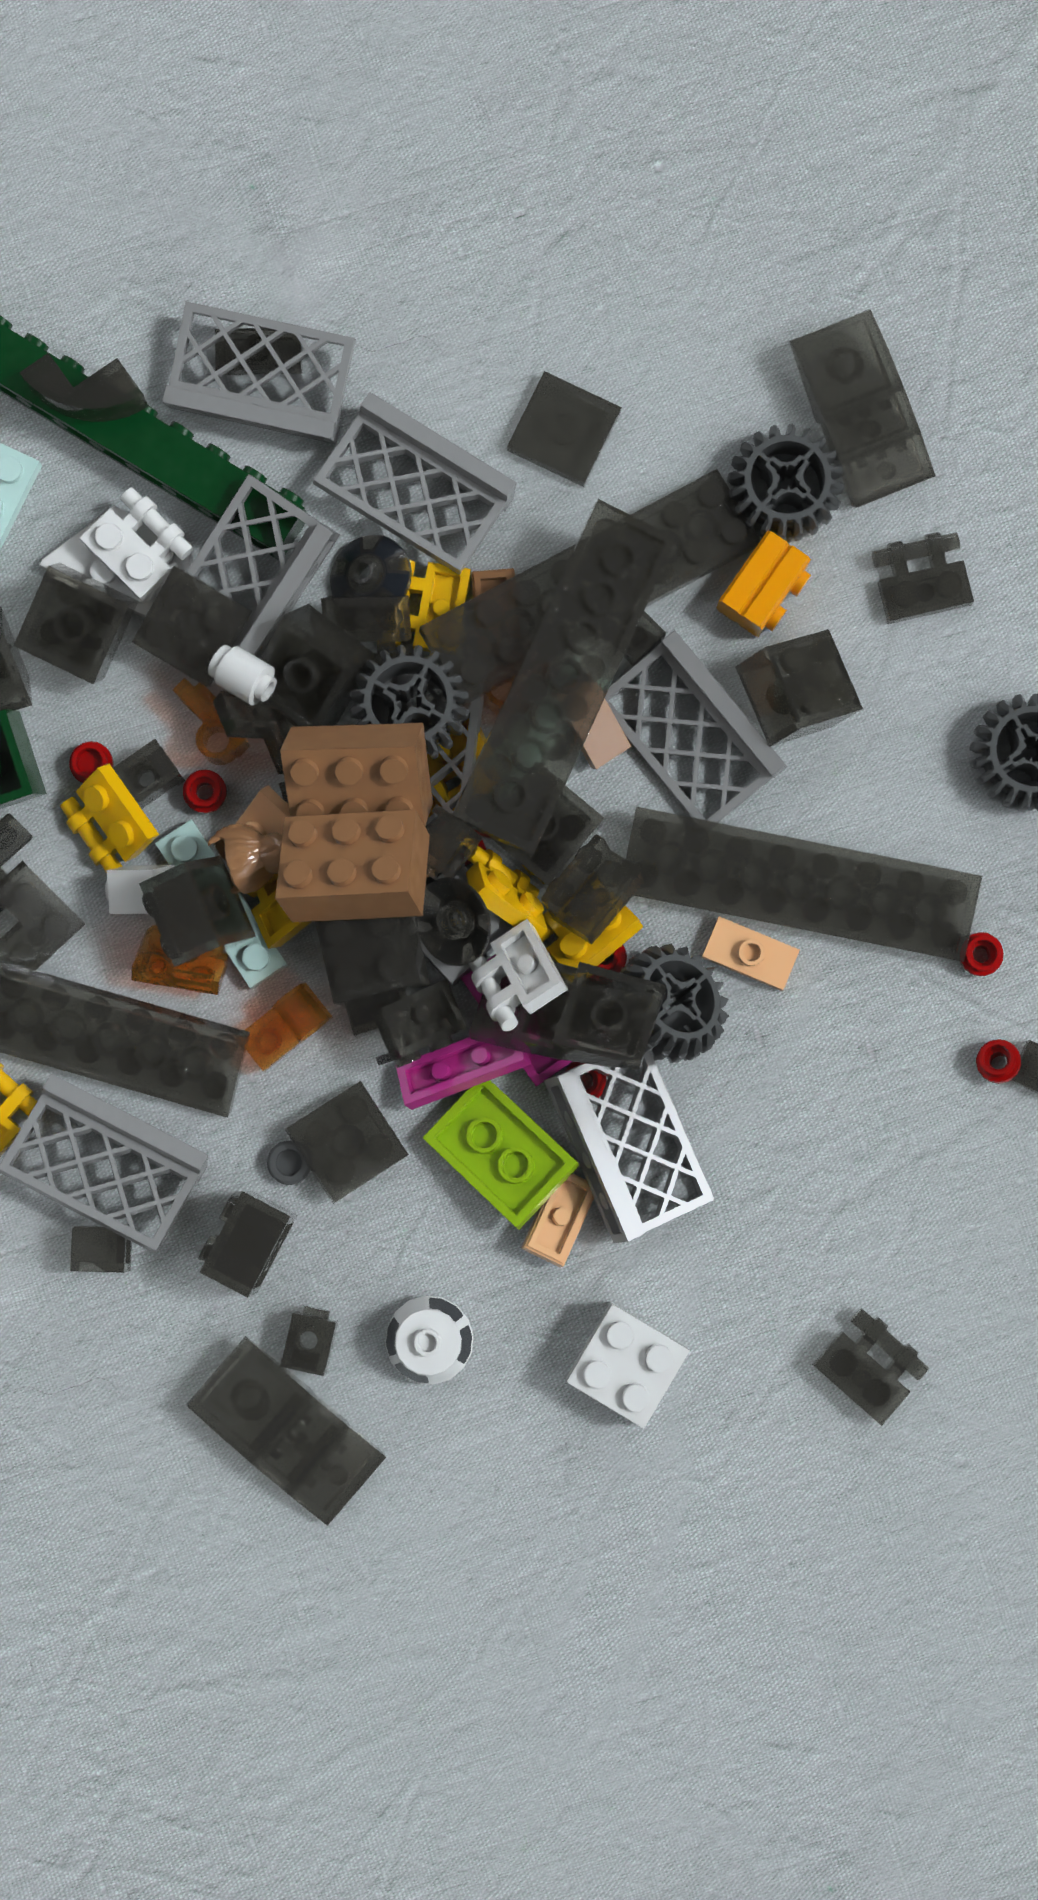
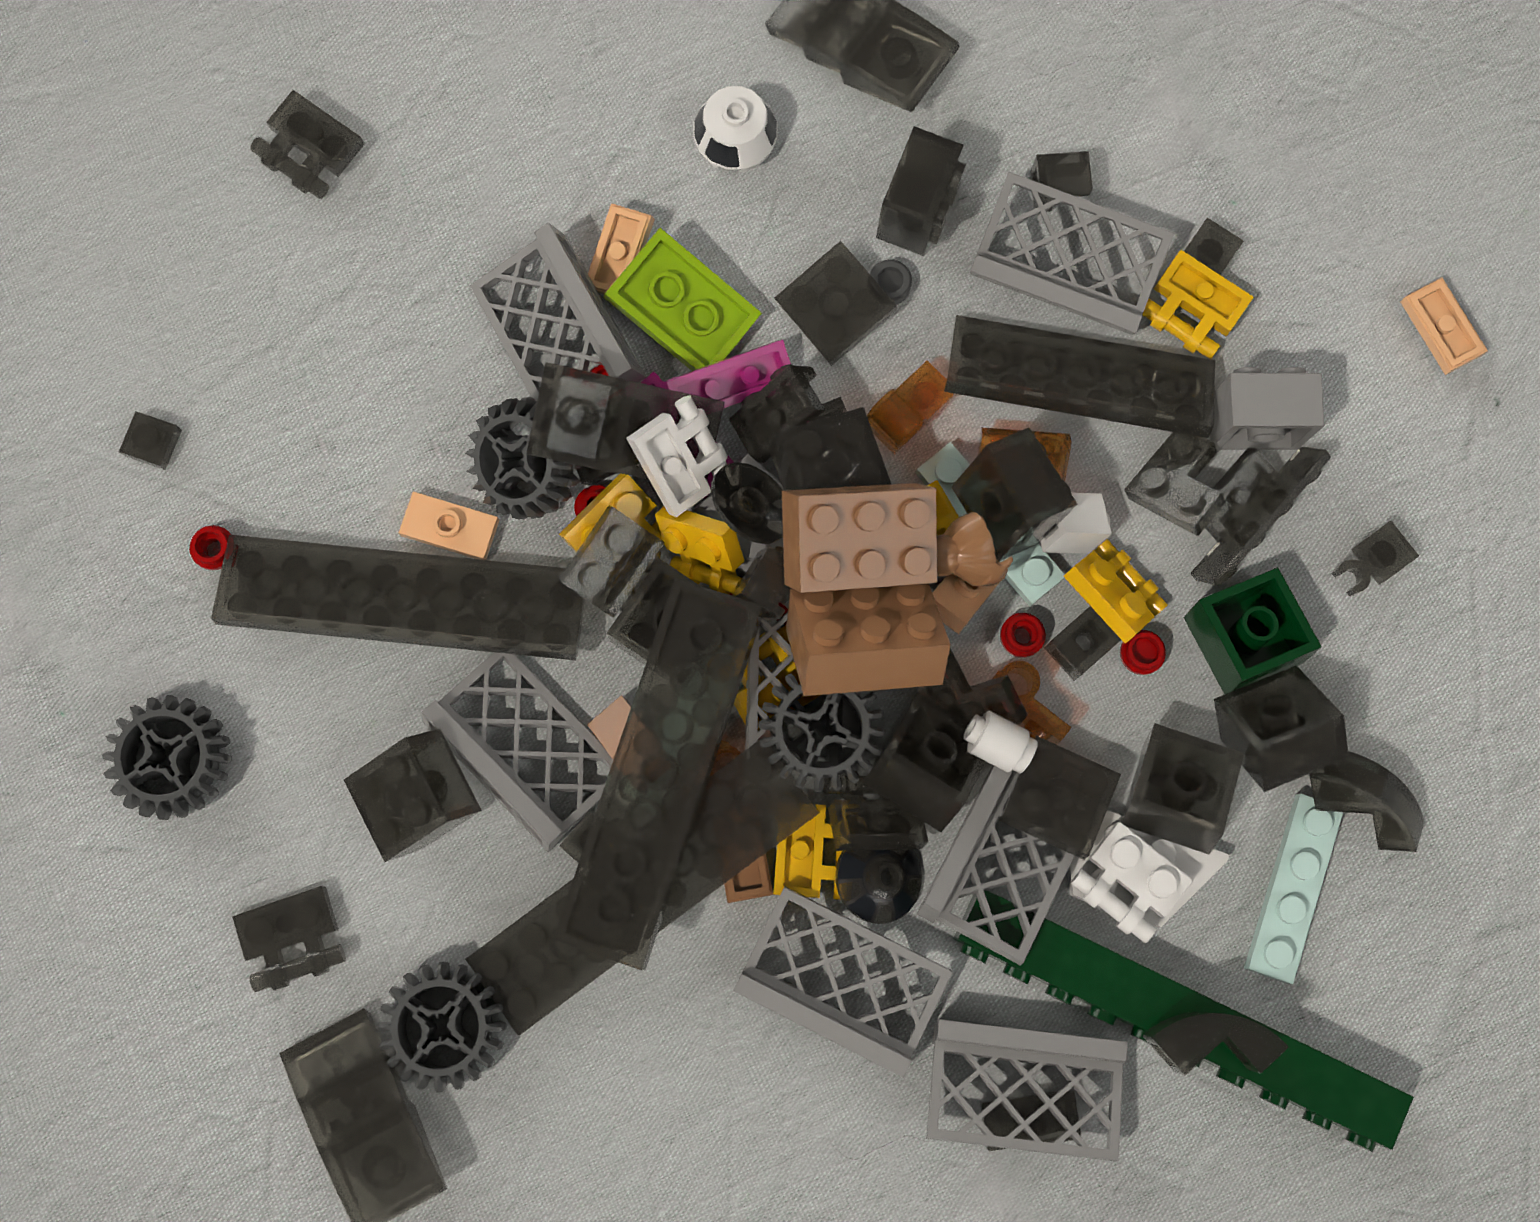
camera: 170 degrees right, 5 degrees down
(314, 1359) = (854, 101): clear smoke brick -> none
(564, 429) = (688, 1066): clear smoke tile -> none
(627, 1365) = (541, 121): white brick -> none
(764, 583) = (457, 910): light orange brick -> none
(994, 1049) = (195, 428): red plate -> none

